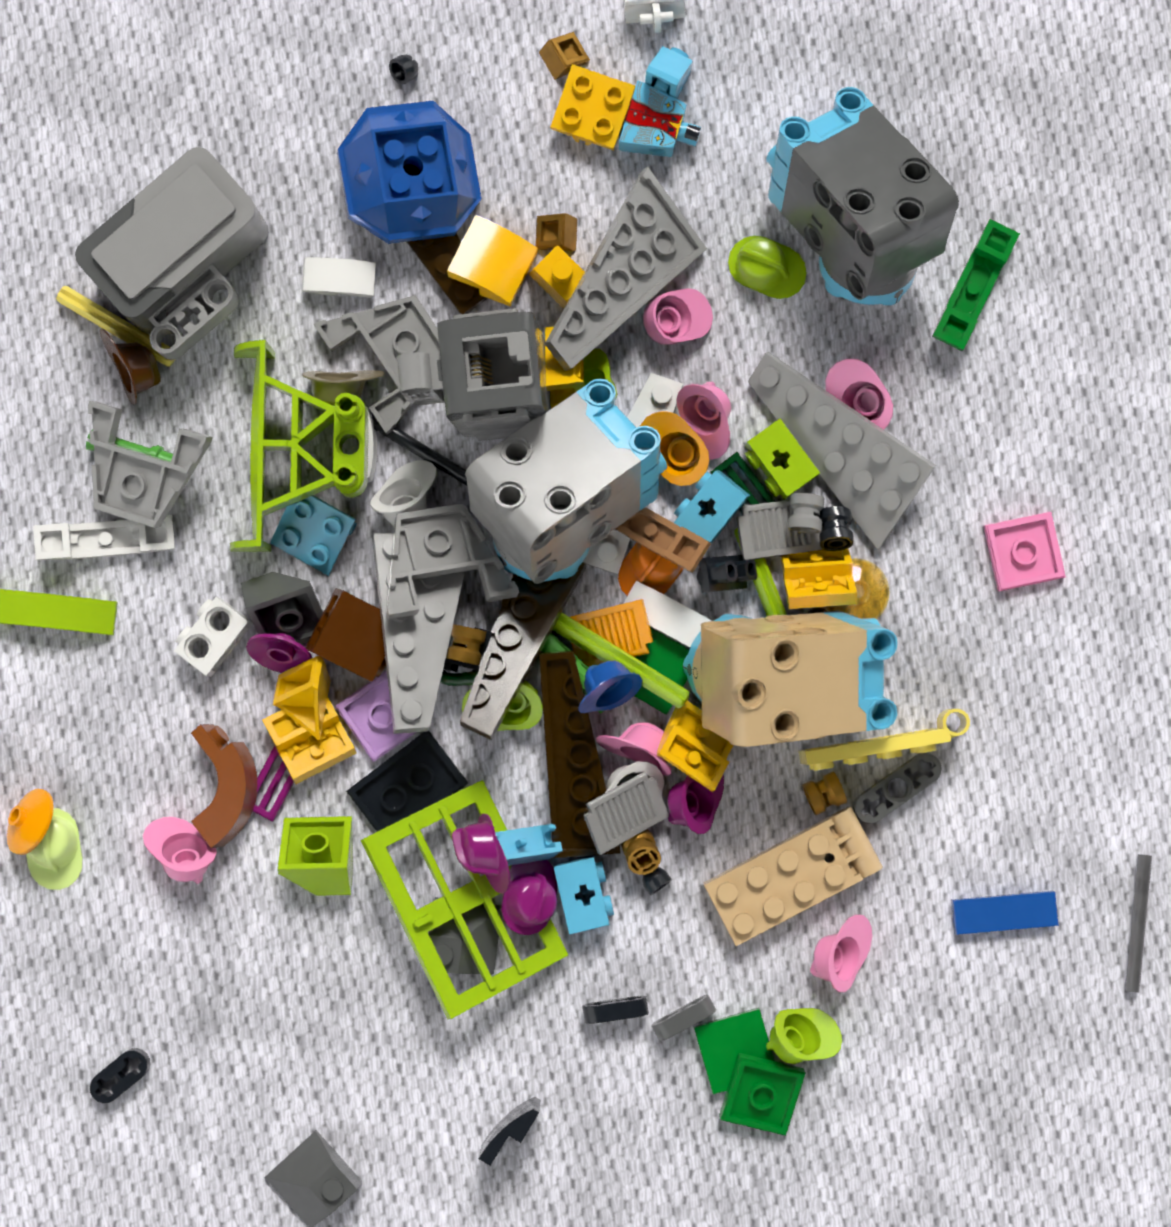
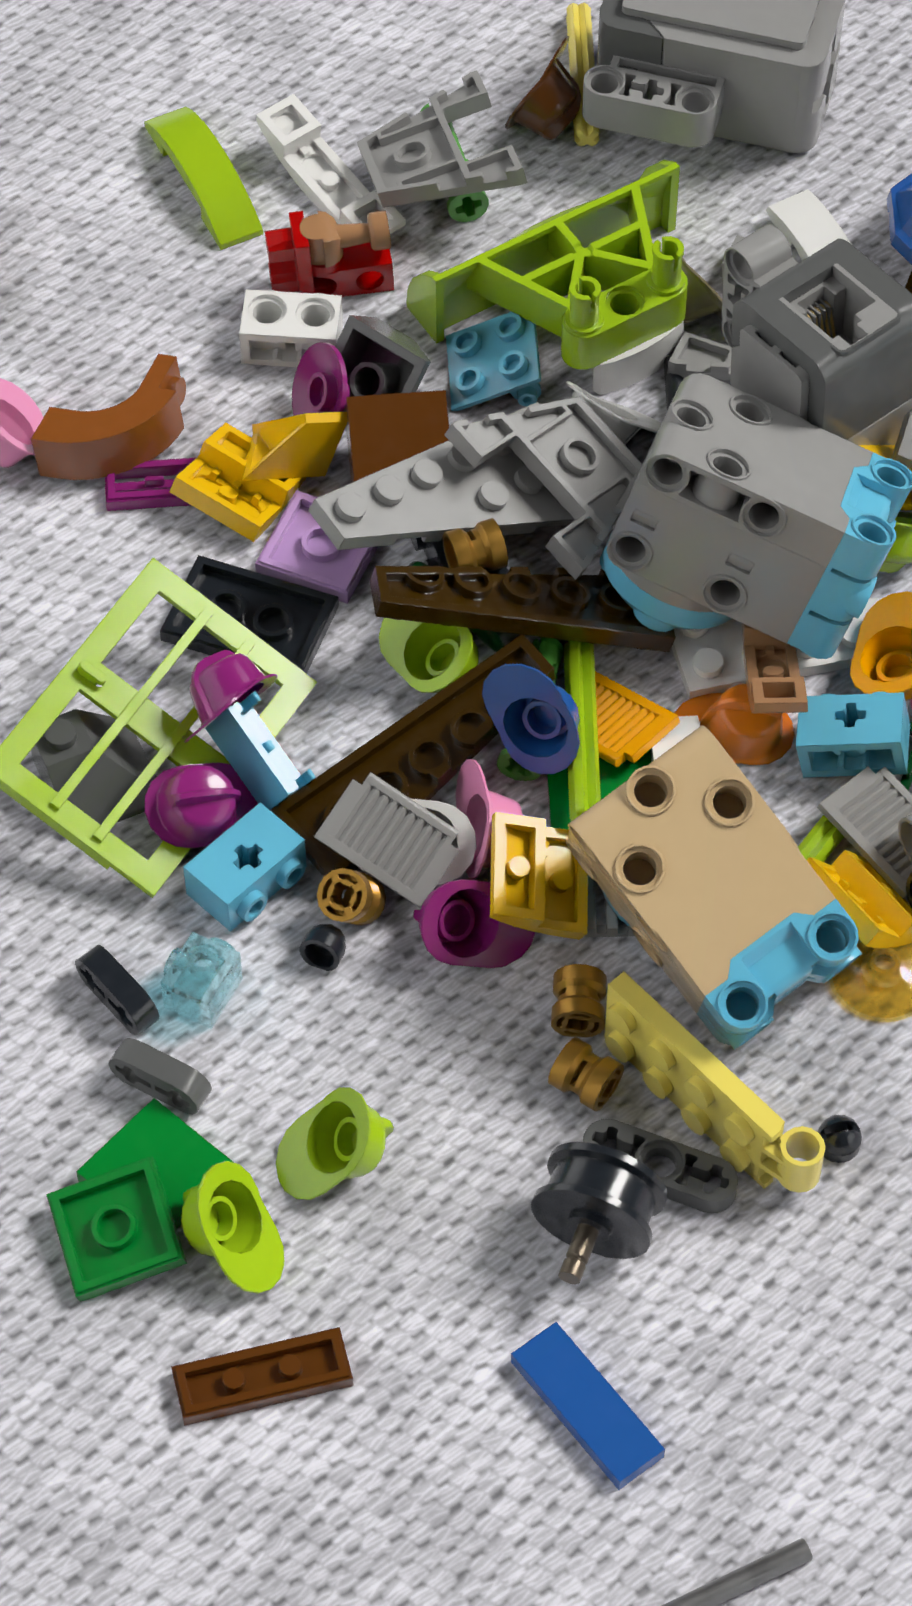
camera: 60 degrees right, 30 degrees down
(178, 584) = (330, 256): none -> red hips
(318, 854) = (89, 560): lime slope -> none
(637, 960) = (201, 978): none -> clear light blue brick
(725, 573) = (784, 787): black hips -> none
(778, 768) = (579, 997): none -> pearl gold wheel
(787, 956) = (330, 1144): none -> lime piece
(793, 875) = (447, 1097): tan hinge -> none
(842, 954) = (389, 1218): bright pink piece -> none
(887, 1065) = (262, 1376): none -> reddish brown tile
(914, 844) = (598, 1204): none -> black wheel
(932, 681) = (841, 1144): none -> black hinge

